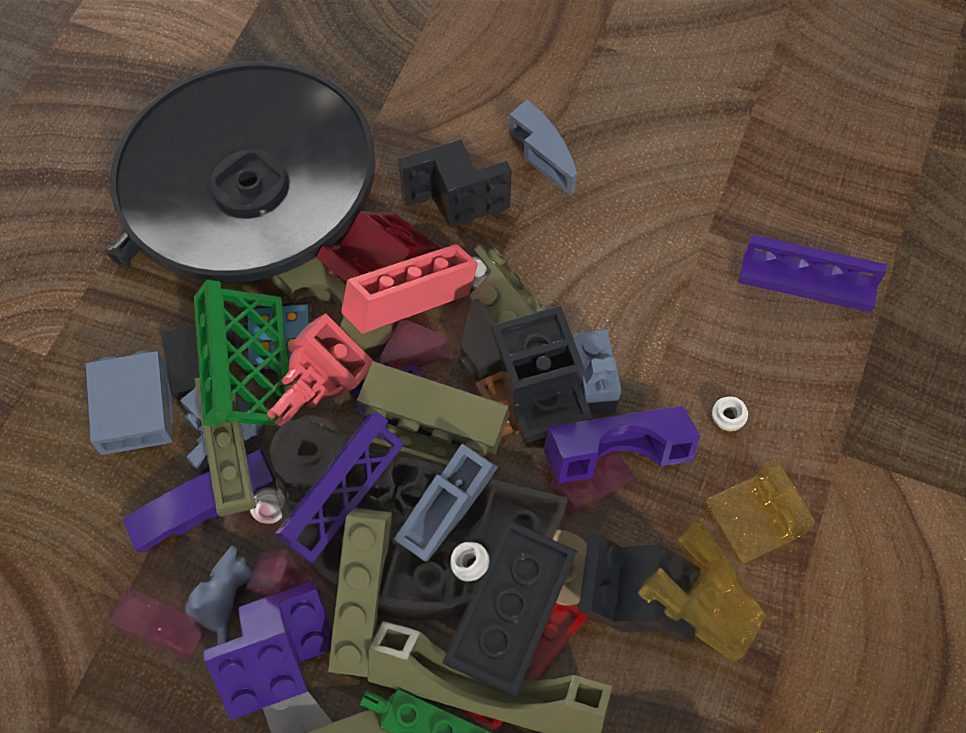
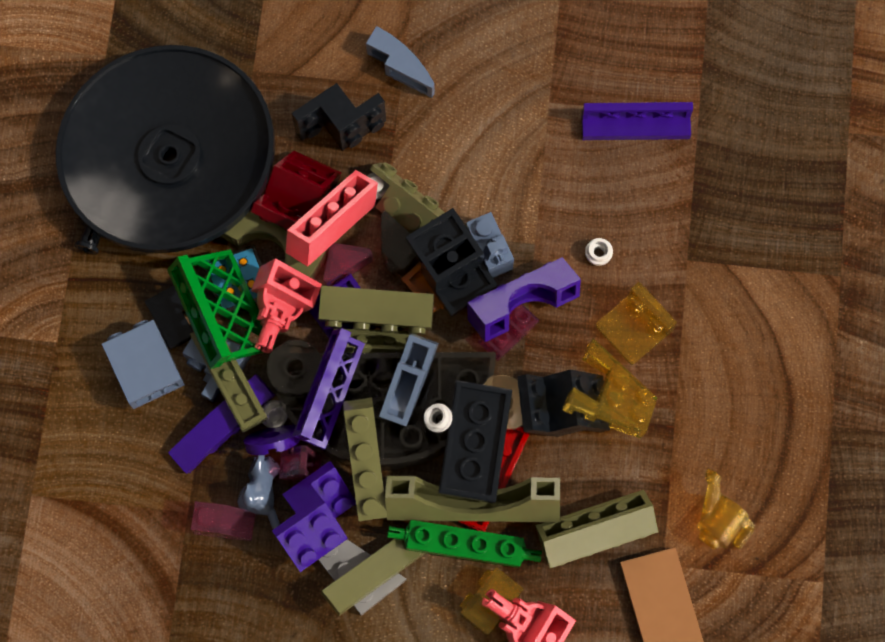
camera: 15 degrees left, 10 degrees up
(251, 534) = (270, 438): none -> dark purple tile

